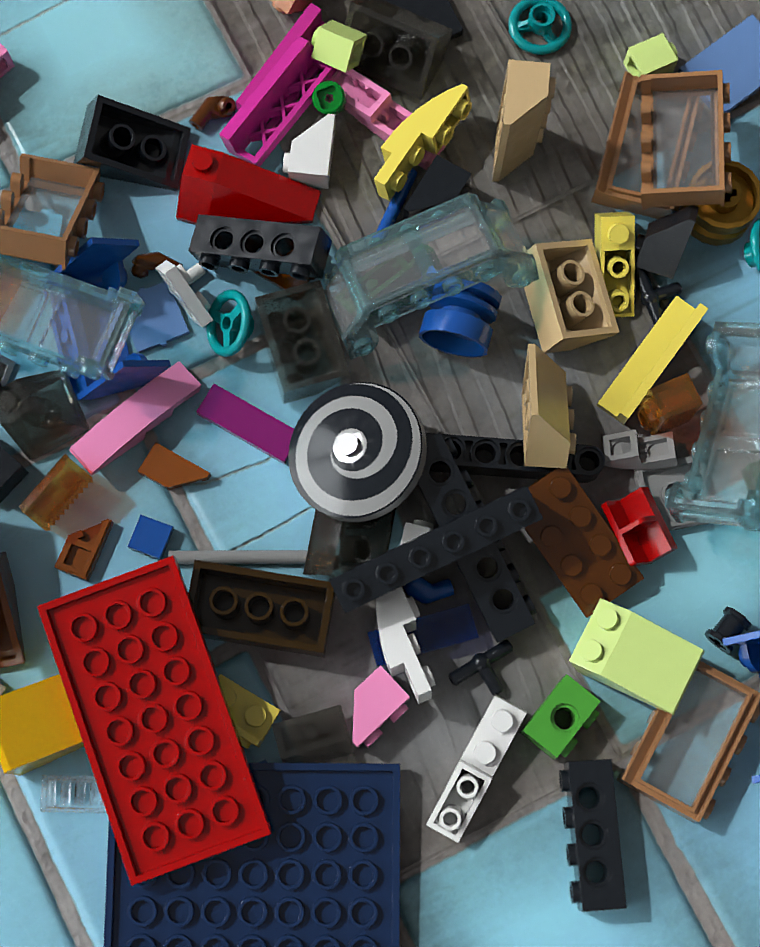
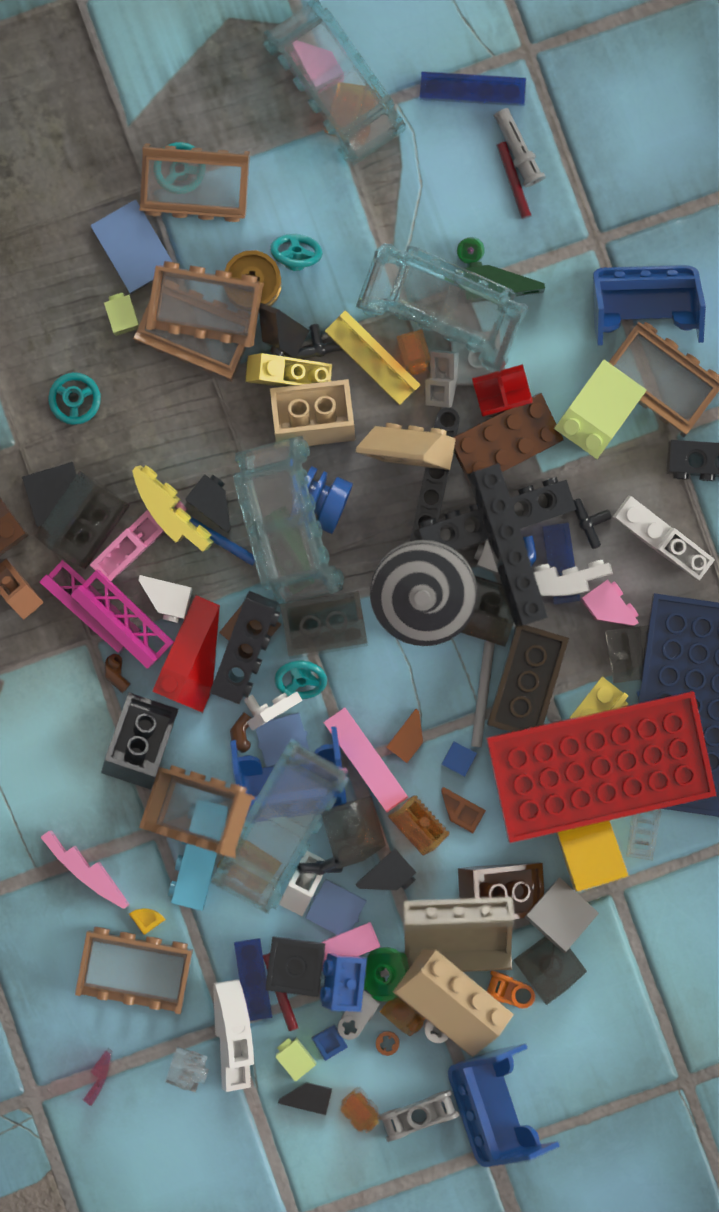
camera: 80 degrees left, 10 degrees up
(246, 422) = (379, 674): magenta tile -> none
(329, 98) = (124, 577): green tile -> none
(338, 45) = (80, 565): yellowish green brick -> none
(521, 114) = (170, 430): tan slope -> none
(566, 696) = (640, 486): bright green brick -> none
(730, 625) = (585, 336): black bush -> none

